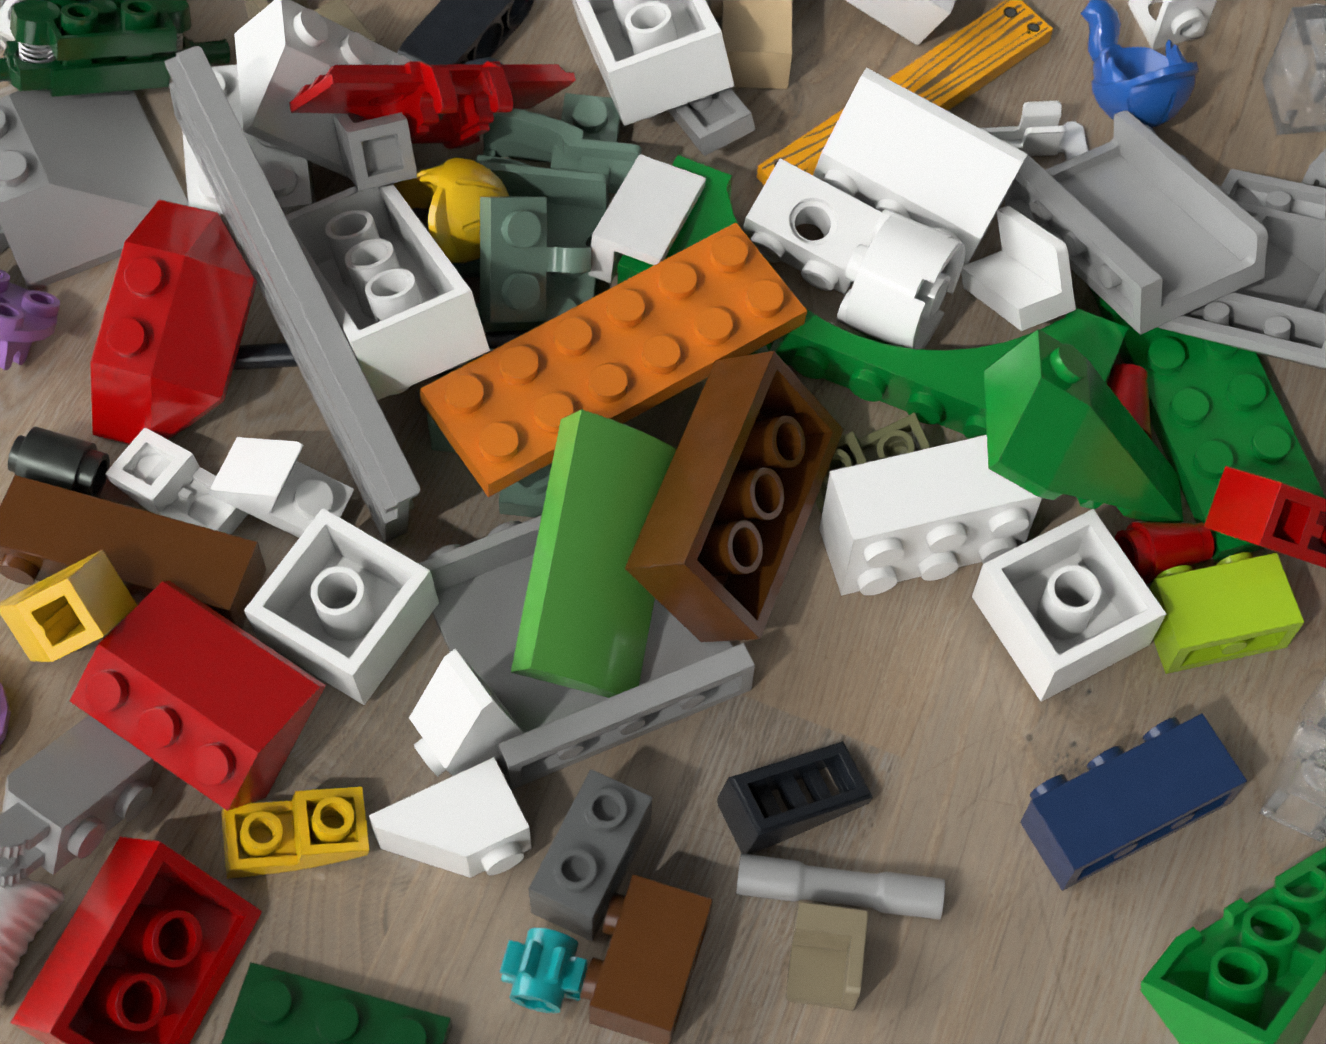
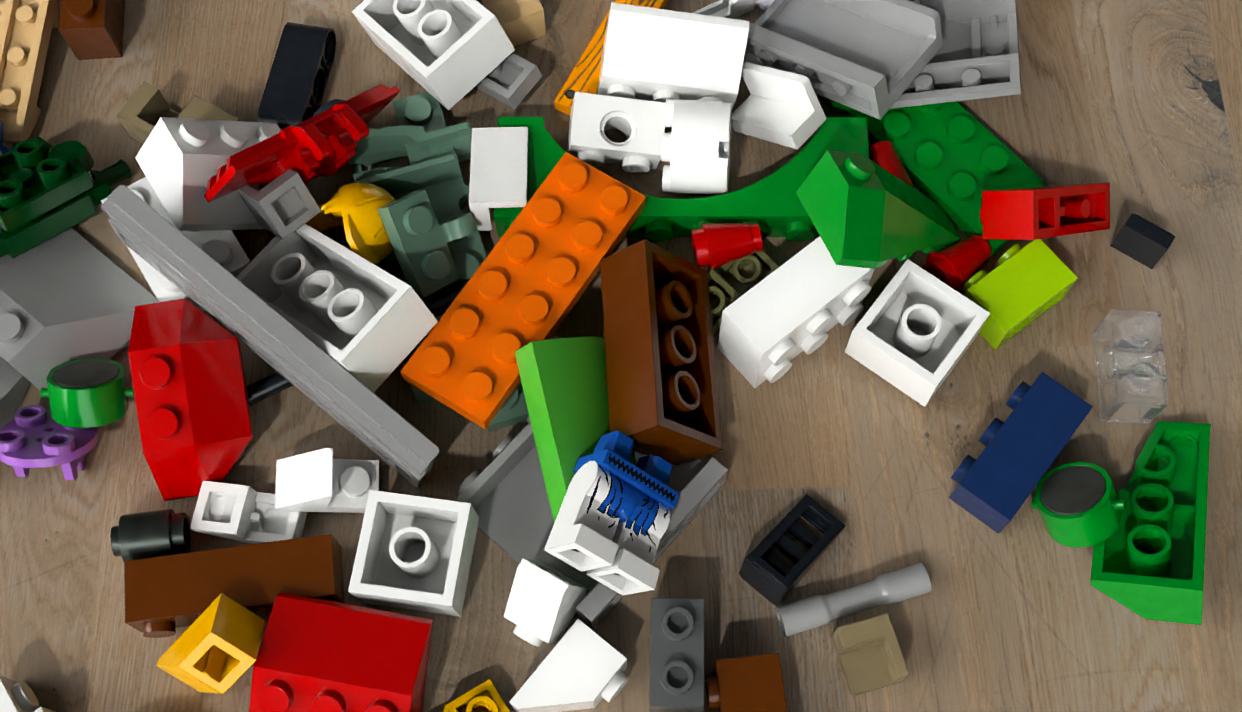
camera: 20 degrees left, 5 degrees up
(63, 276) = (87, 392): none -> green piece
(588, 651) = (615, 516): none -> white hips
(880, 405) = (725, 242): none -> red cone
(1173, 890) = (1078, 504): none -> piece

